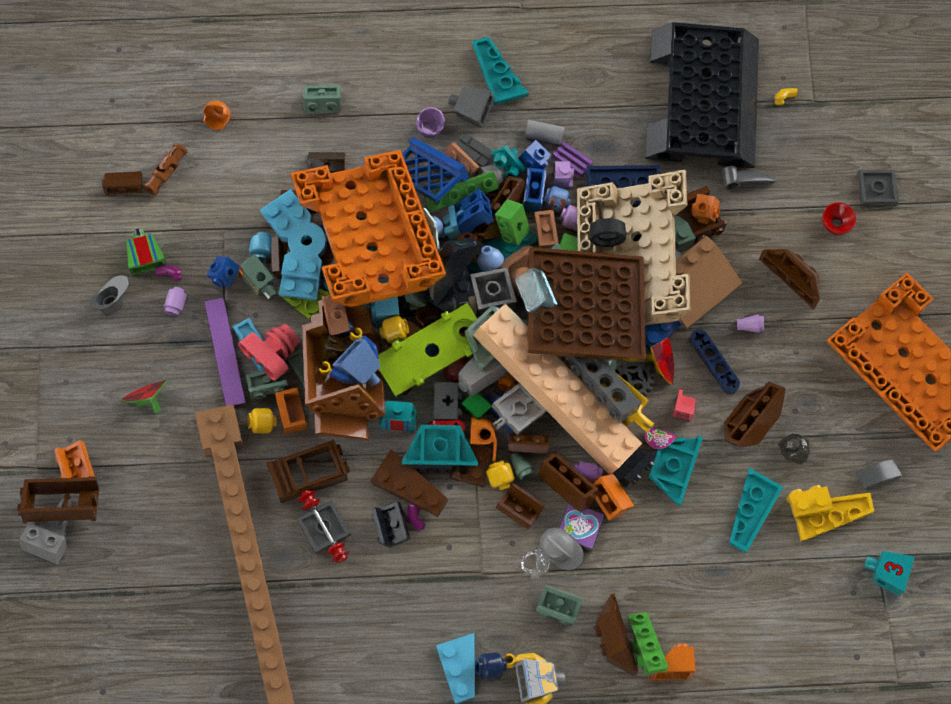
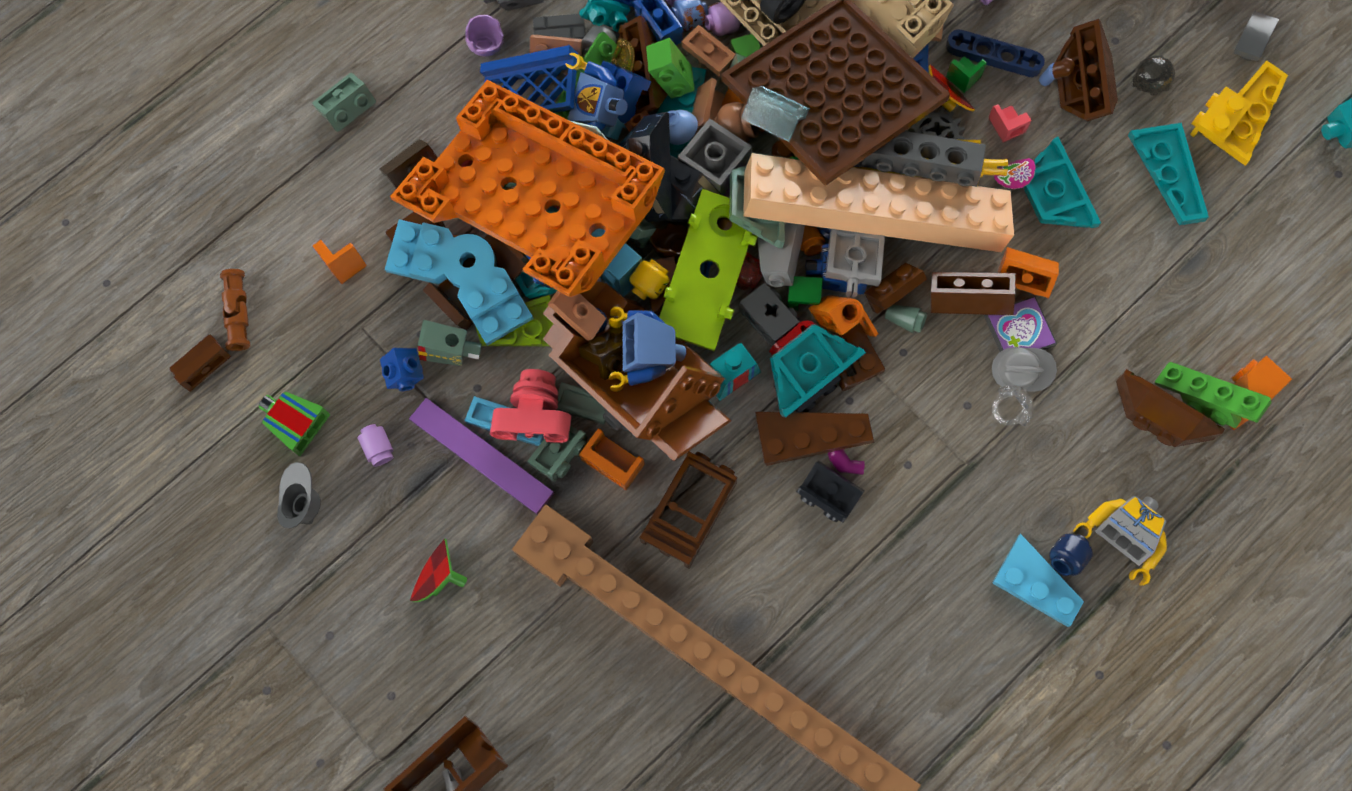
camera: 30 degrees left, 5 degrees up
(74, 461) = (421, 718): orange bracket -> none
(171, 270) = (338, 415): magenta arm -> none
(216, 115) = (241, 206): orange hair -> none
(241, 189) = (343, 263): none -> orange panel
(261, 246) = (418, 306): medium azure head -> none
(261, 420) = (589, 496): yellow head -> none
(323, 526) = (760, 555): dark grey plate -> none
(453, 206) = (596, 96): none -> torso
(495, 194) = (624, 55): none -> clear yellow tile
(500, 475) = (894, 344): yellow head -> none
(520, 506) = (944, 359): reddish brown bracket -> none
(559, 605) = (1079, 430): sand green bracket -> none
(589, 471) = (980, 263): medium lavender brick -> none
(631, 468) = (1025, 221): black bracket -> none
(685, 358) = (965, 73): none -> green panel
(737, 399) = (1056, 71): none -> reddish brown arm

